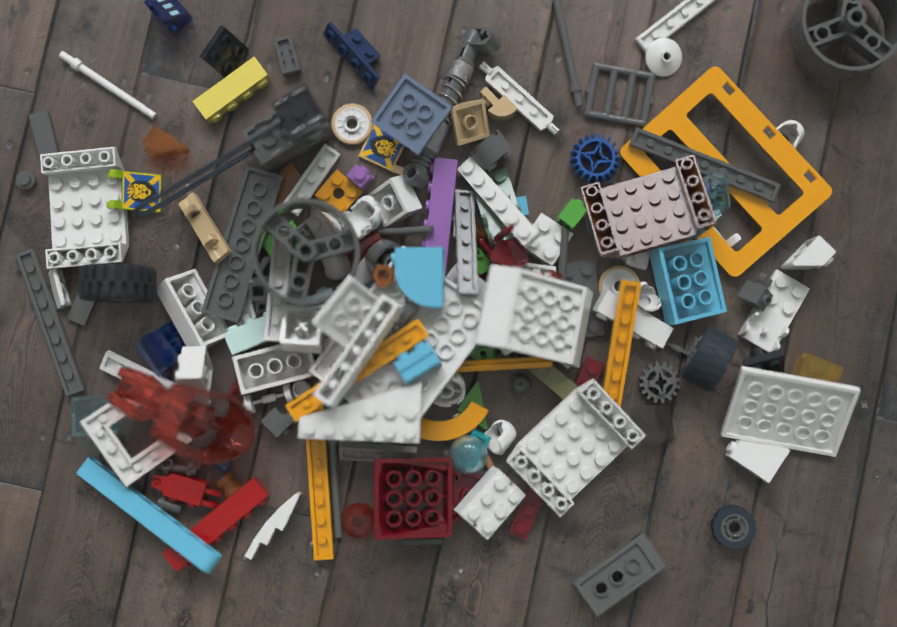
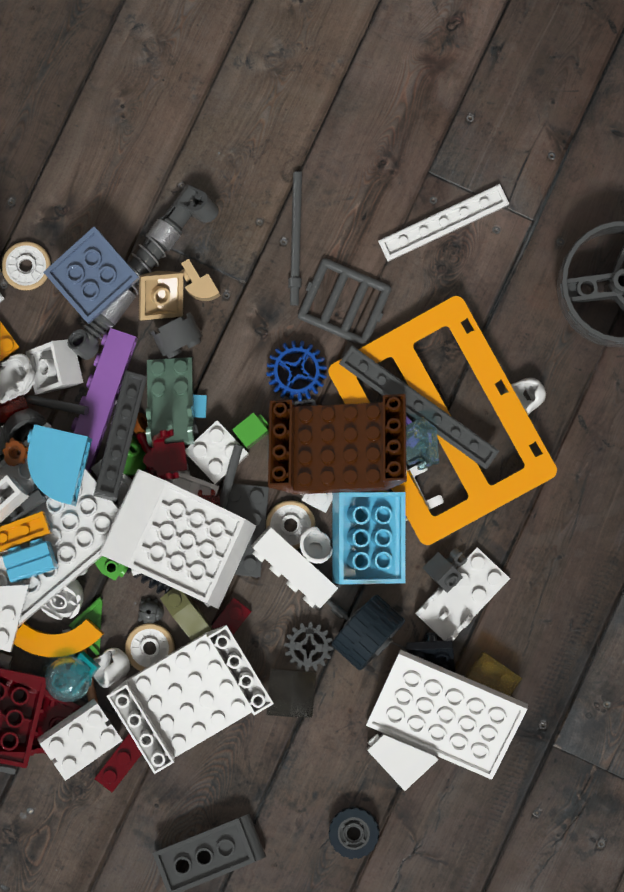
camera: 15 degrees right, 0 degrees up
(355, 51) = (51, 183): dark blue bracket -> none
(360, 176) = (20, 330): medium lavender brick -> none
(382, 150) = (52, 307): flag -> none
(499, 202) = (169, 397): white plate -> none
(504, 364) = (130, 584): light orange axle -> none
(516, 409) = (145, 633): none -> white wheel
(526, 104) = (225, 280): white plate -> none
(621, 339) = (271, 590): light orange plate -> none
(655, 57) = (397, 262): white dish -> none
(810, 255) = (516, 541): white slope -> none

